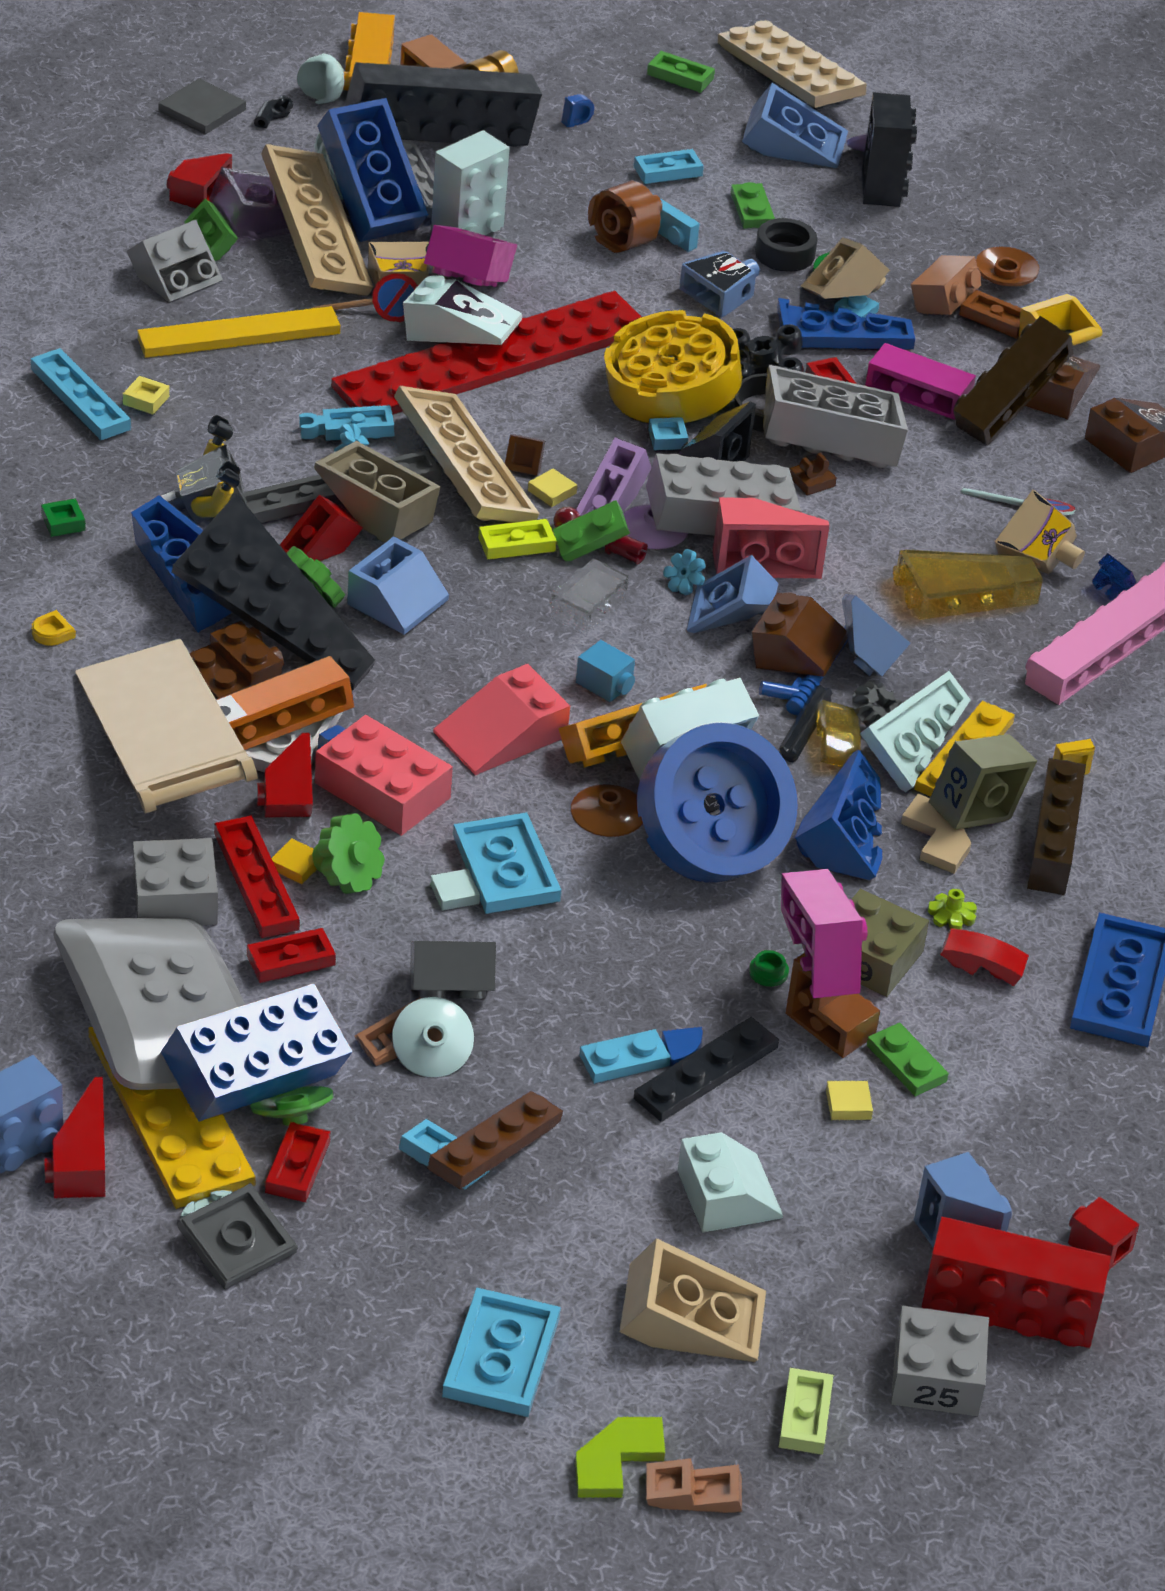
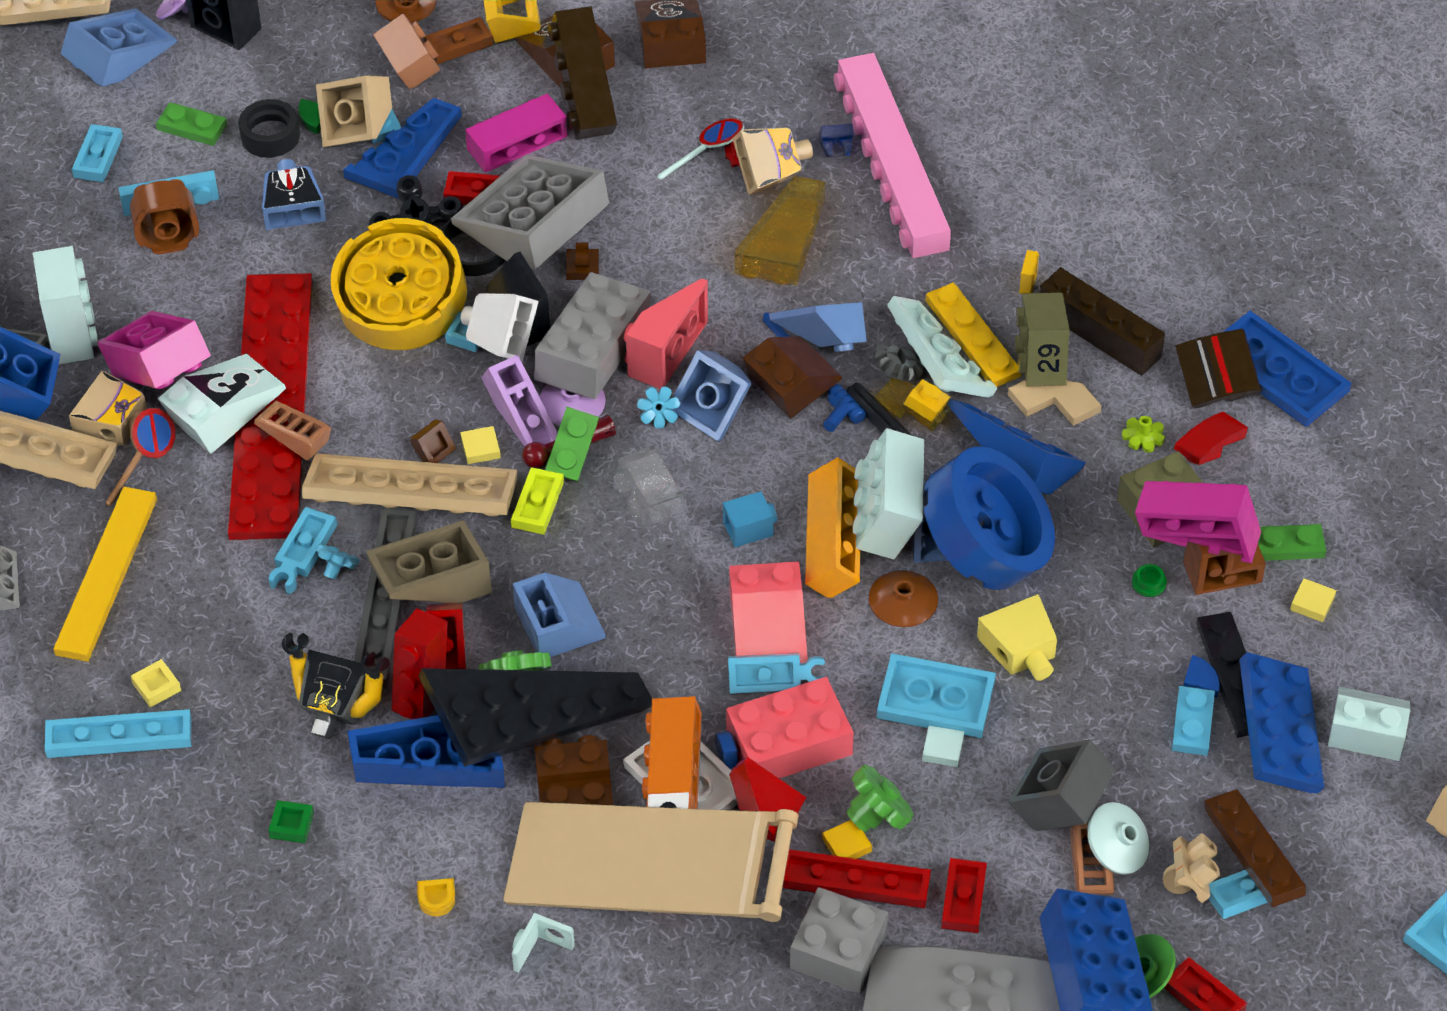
camera: 55 degrees left, 10 degrees up
(37, 693) = (536, 928): none -> light aqua bracket
(263, 488) = (417, 645): none -> red brick
(434, 1097) = (1192, 867): none -> tan hips
(439, 737) = (769, 672): none -> medium azure plate
(468, 381) = (296, 441): none -> nougat slope
(621, 895) = (1020, 637): none -> light yellow torso
(653, 1114) = (1281, 723): none -> blue plate
(674, 431) = (500, 323): none -> white torso
(840, 732) = (927, 400): none -> yellow plate
(1073, 927) = (1218, 368): none -> dark brown slope

